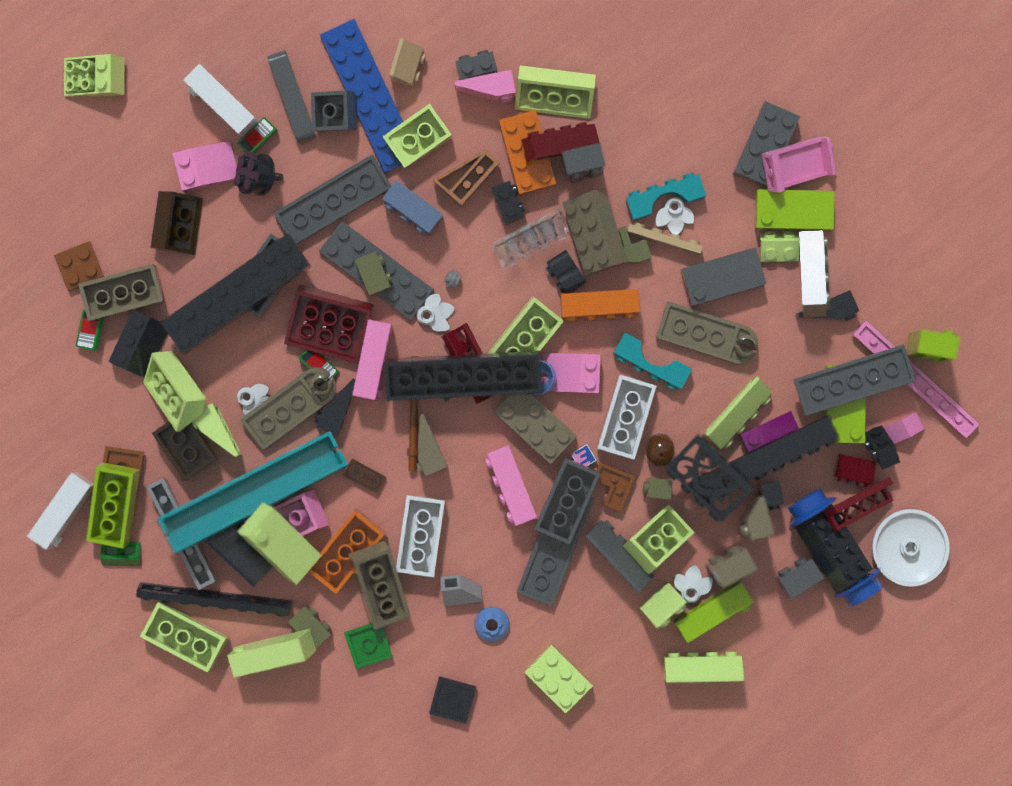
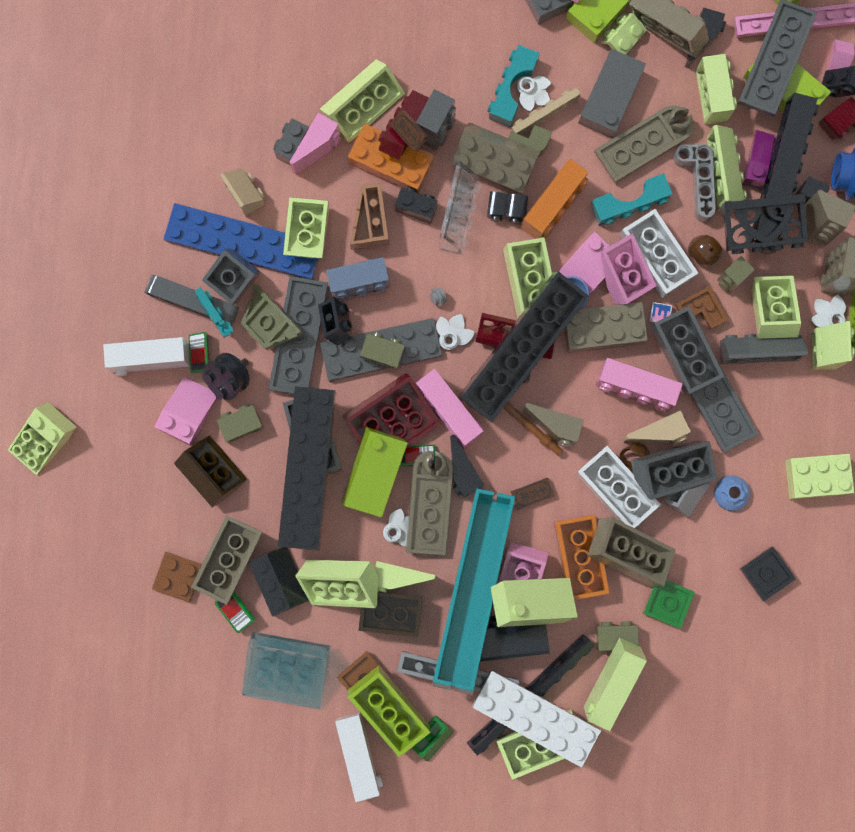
camera: 45 degrees left, 5 degrees down
(79, 404) = (285, 670): none -> clear light blue slope
(197, 616) = (536, 718): none -> white brick
(229, 213) = (239, 424): none -> olive brick
(277, 345) = (374, 472): none -> lime brick
(294, 125) = (214, 313): none -> teal hinge
(323, 168) = (268, 321): none -> olive wing
(366, 219) = (335, 321): none -> black brick
(464, 529) = (638, 448): none -> reddish brown piece
(469, 565) = (675, 469): none -> dark grey slope
(493, 534) = (667, 430): none -> tan slope
(551, 152) = (409, 130): none -> reddish brown tile
(589, 404) = (626, 271): none -> bright pink slope
(710, 402) = (698, 181): none -> light grey beam
(792, 353) = (715, 89): none -> yellowish green brick

